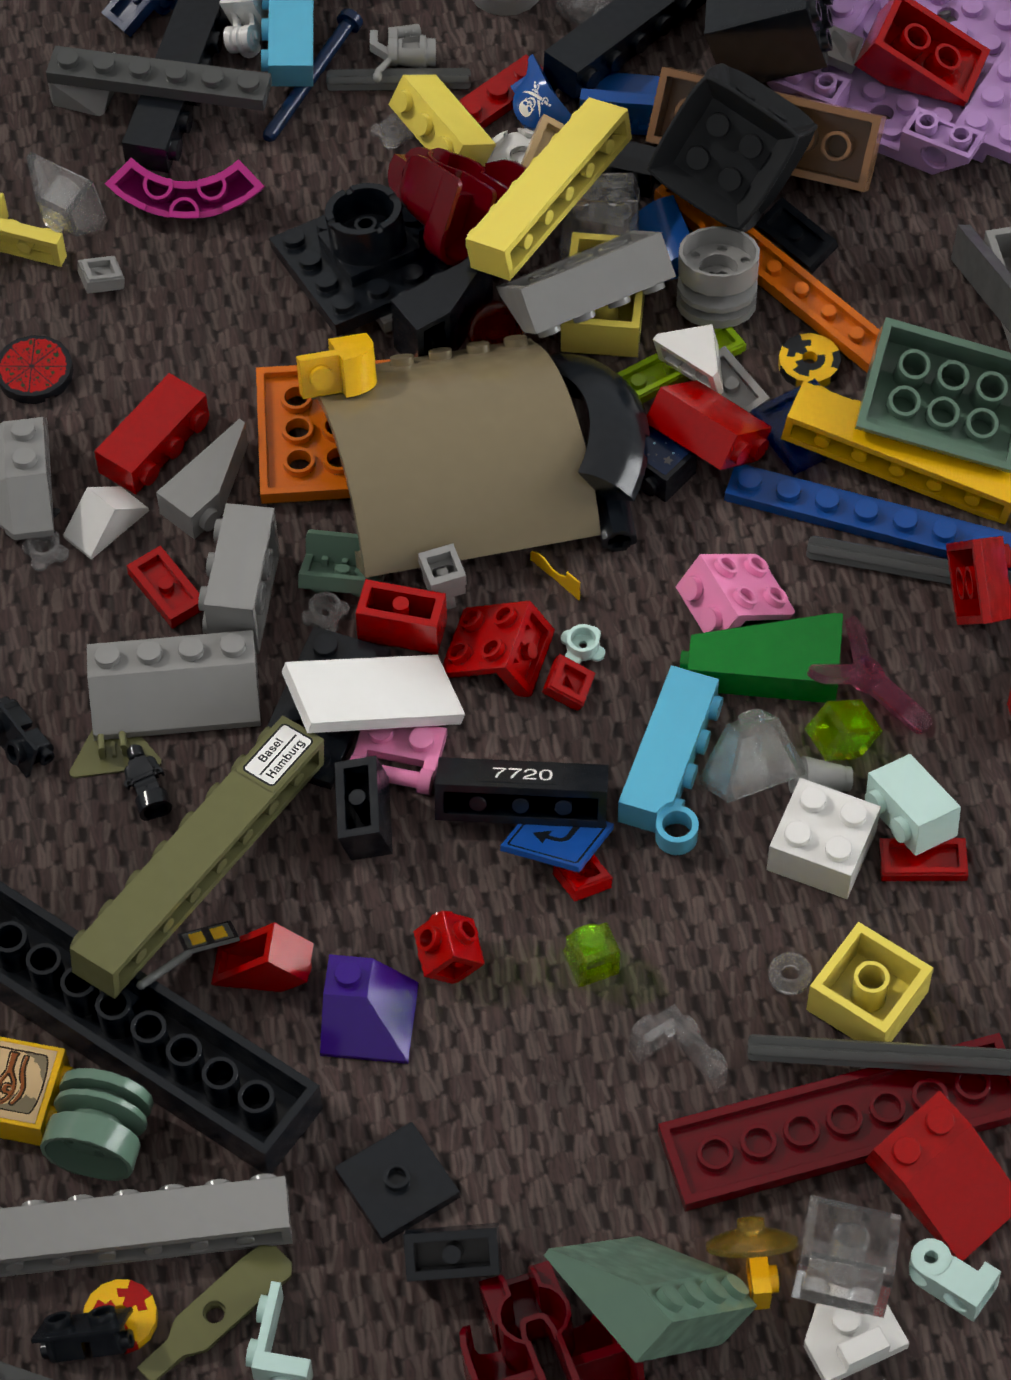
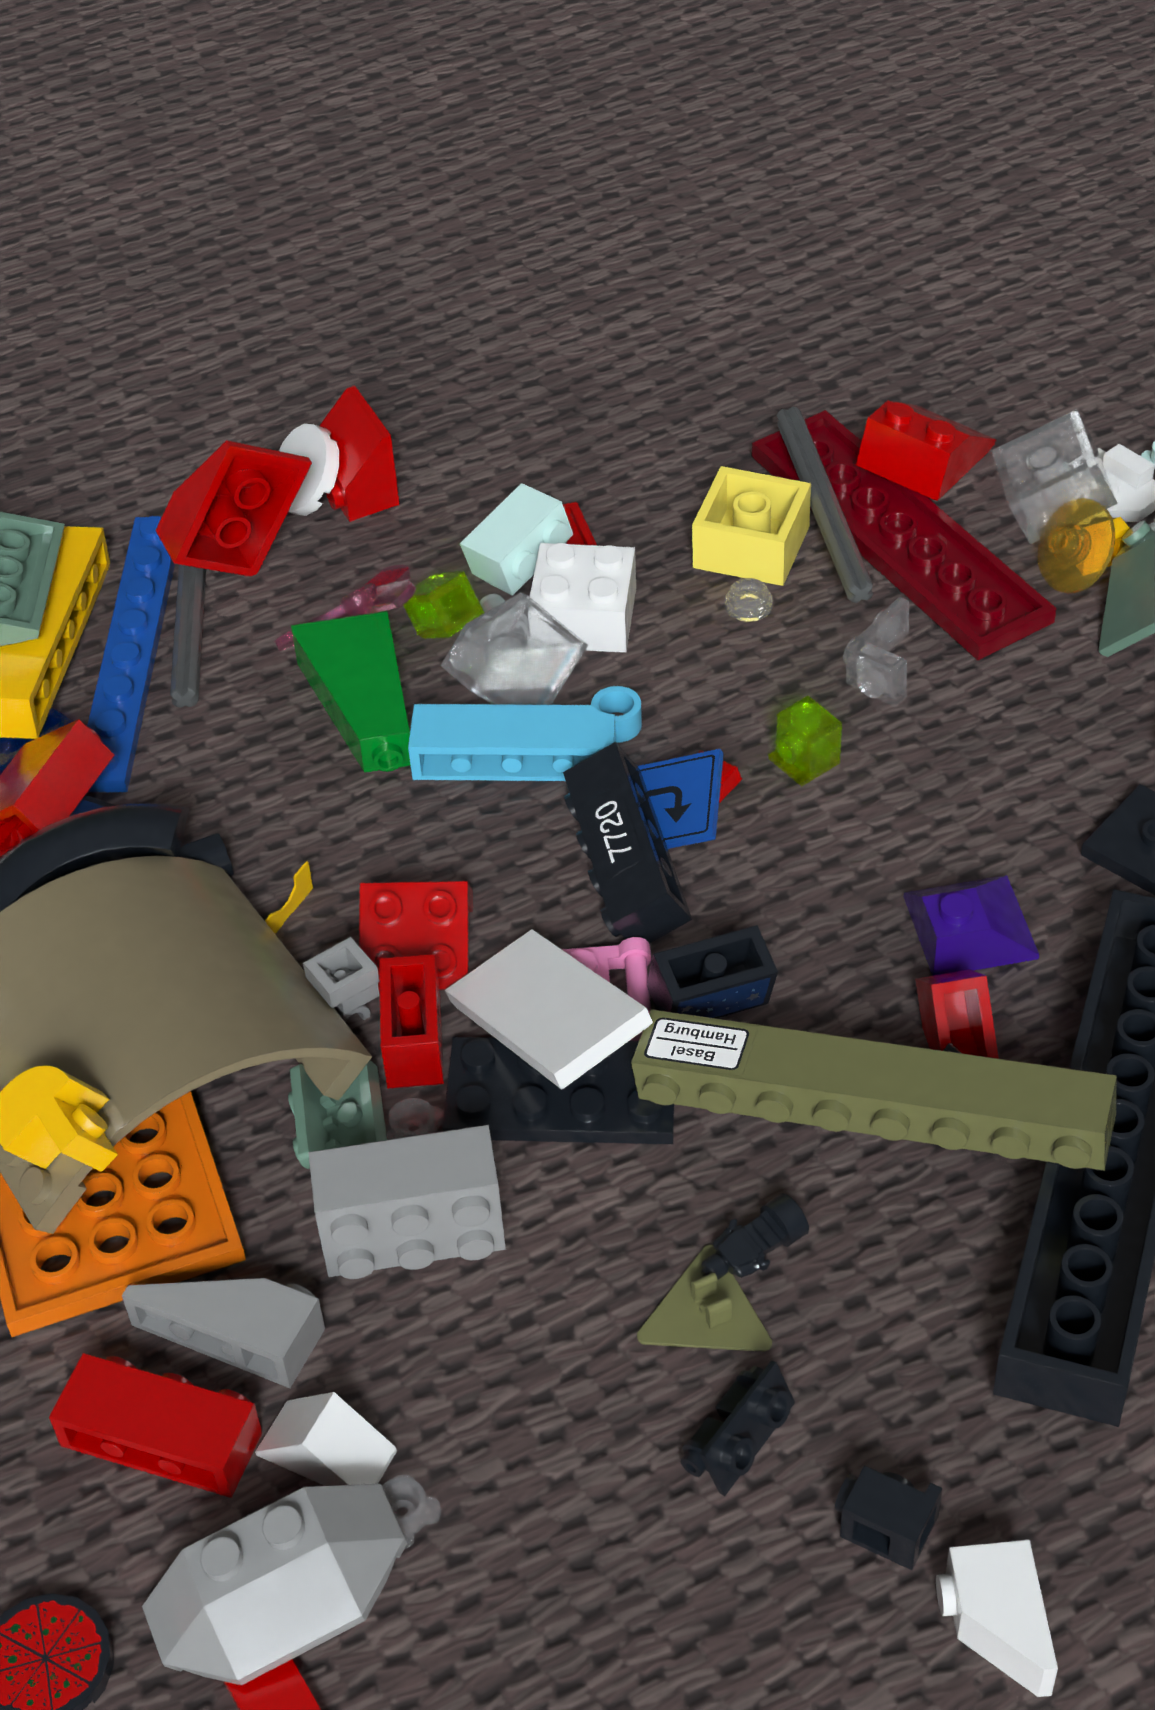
camera: 105 degrees left, 10 degrees down
(165, 586) = (428, 1321): red plate -> none
(173, 684) = (597, 1252): light grey slope -> none
(448, 947) = (859, 856): red brick -> none
(568, 682) = (446, 855): red tile -> none
(584, 634) = (383, 847): light aqua plate -> none
(731, 590) = (282, 740): bright pink bracket -> none
(951, 1278) = (1020, 415): light aqua leg -> none

